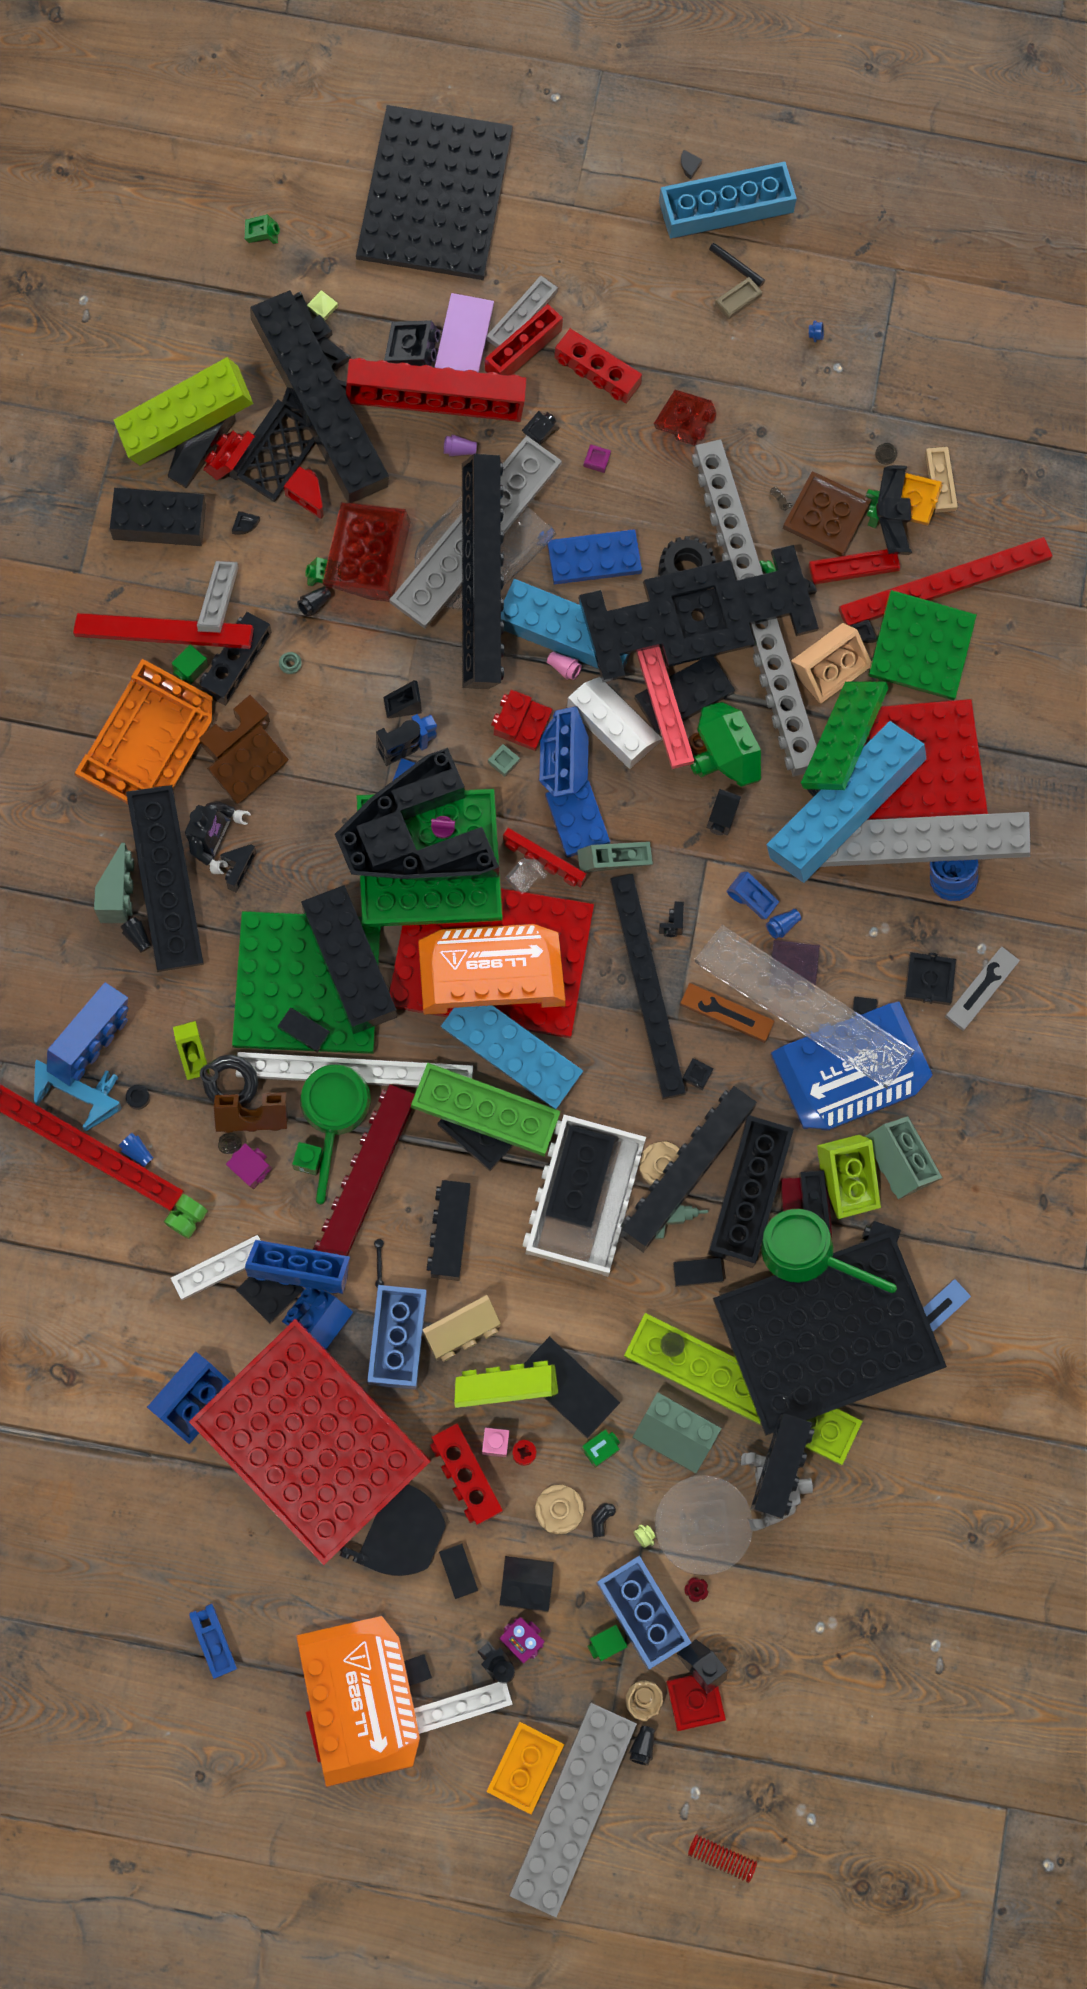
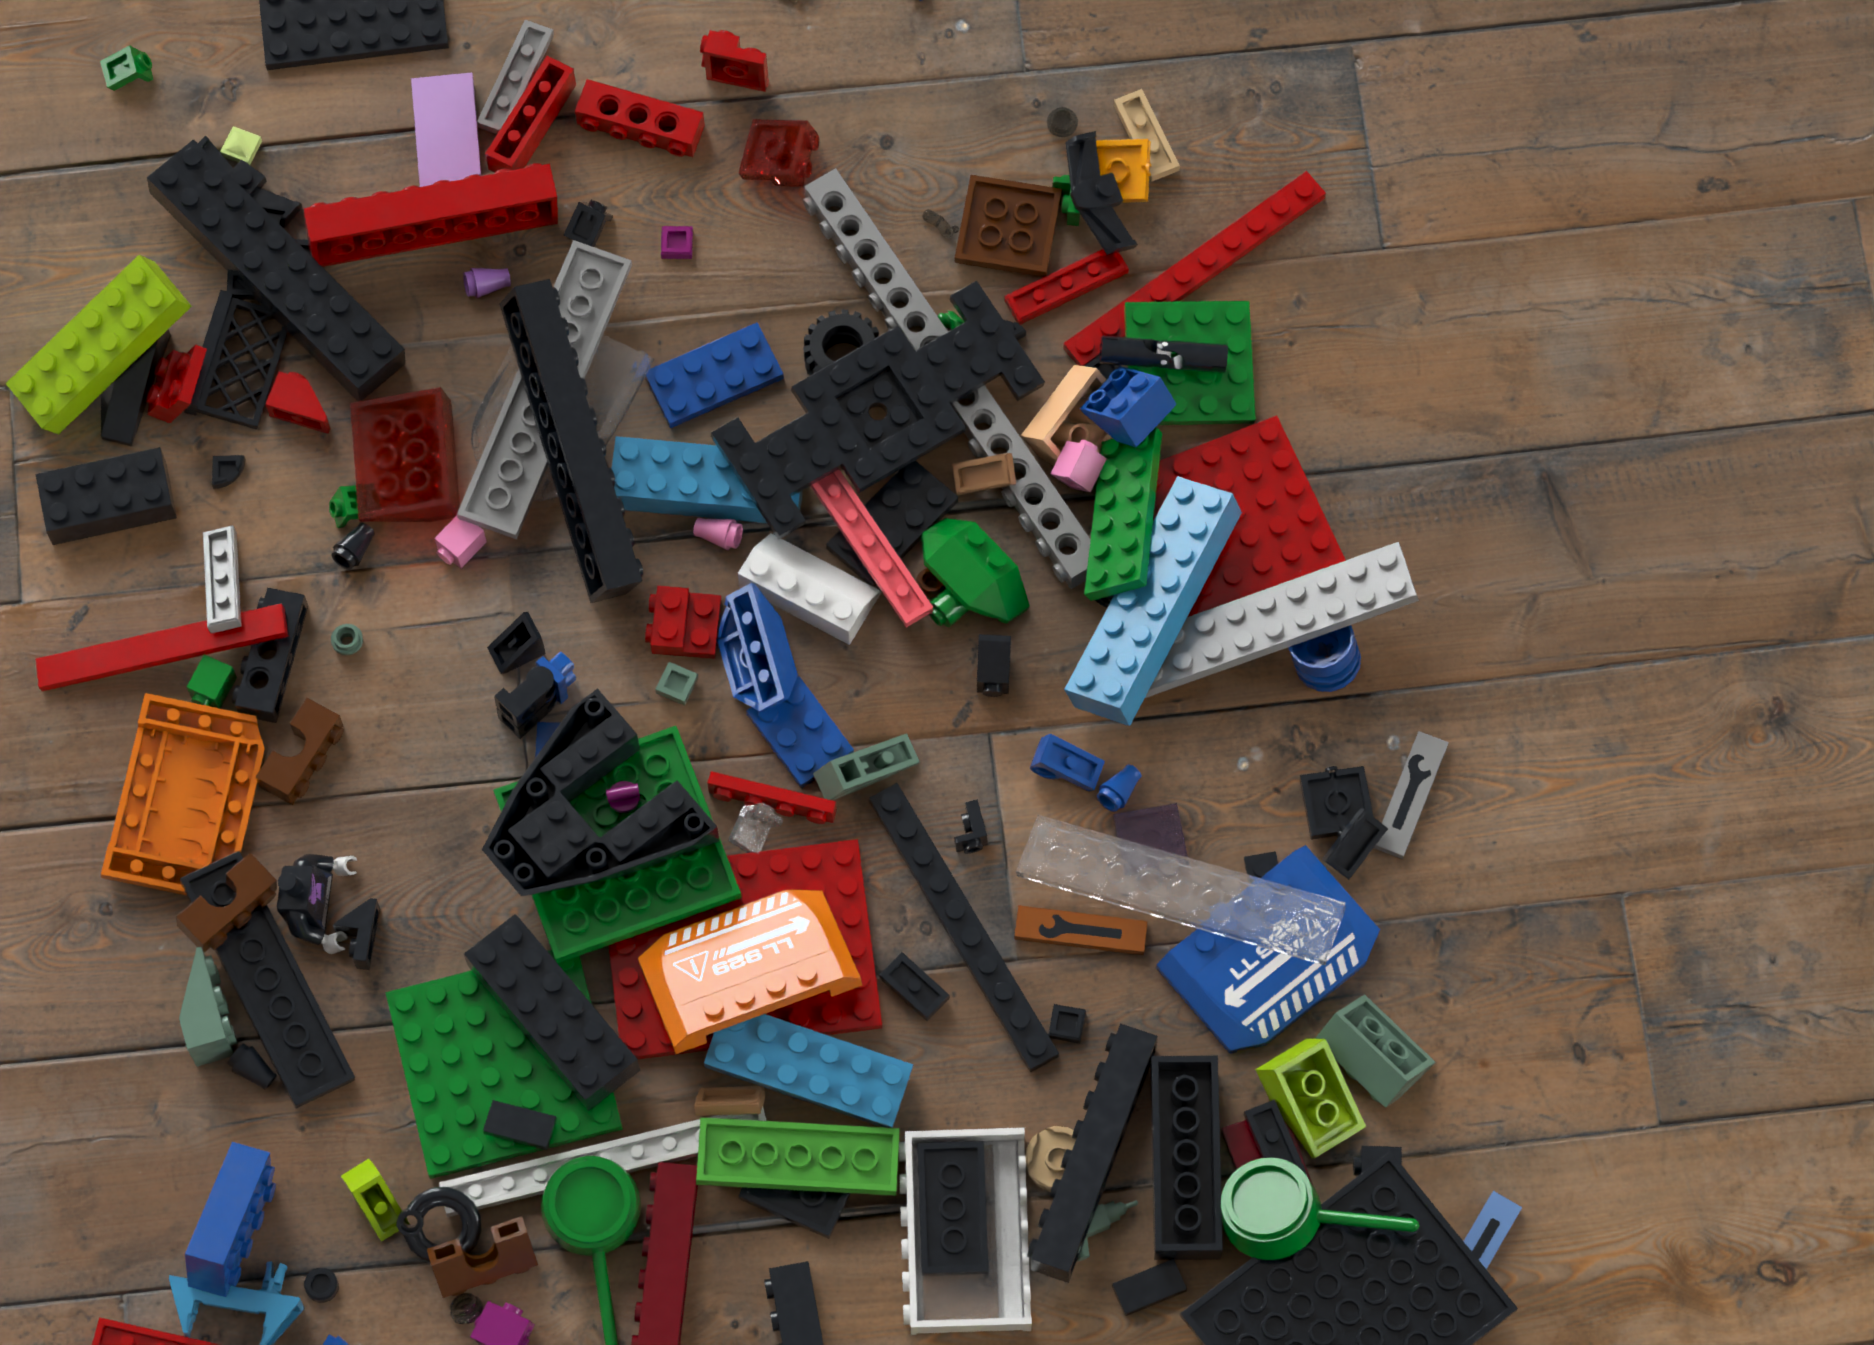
camera: 10 degrees left, 5 degrees down
(136, 829) = (209, 924): none -> reddish brown arch
(247, 764) = (332, 792): reddish brown plate -> none
(307, 1158) = (578, 1296): green brick -> none
(386, 619) = (459, 542): none -> bright pink brick
(412, 343) = (379, 161): black plate -> none
(451, 1056) = (729, 1100): none -> medium nougat tile
(601, 1016) = (914, 986): none -> black plate
(672, 346) = (731, 64): none -> red plate
(757, 679) = (984, 474): none -> medium nougat tile
(824, 693) = (1079, 465): none -> bright pink brick
(872, 662) = (1129, 405): none -> blue slope
(902, 632) = (1157, 354): none -> black piece
(933, 1010) = (1355, 843): none -> black tile

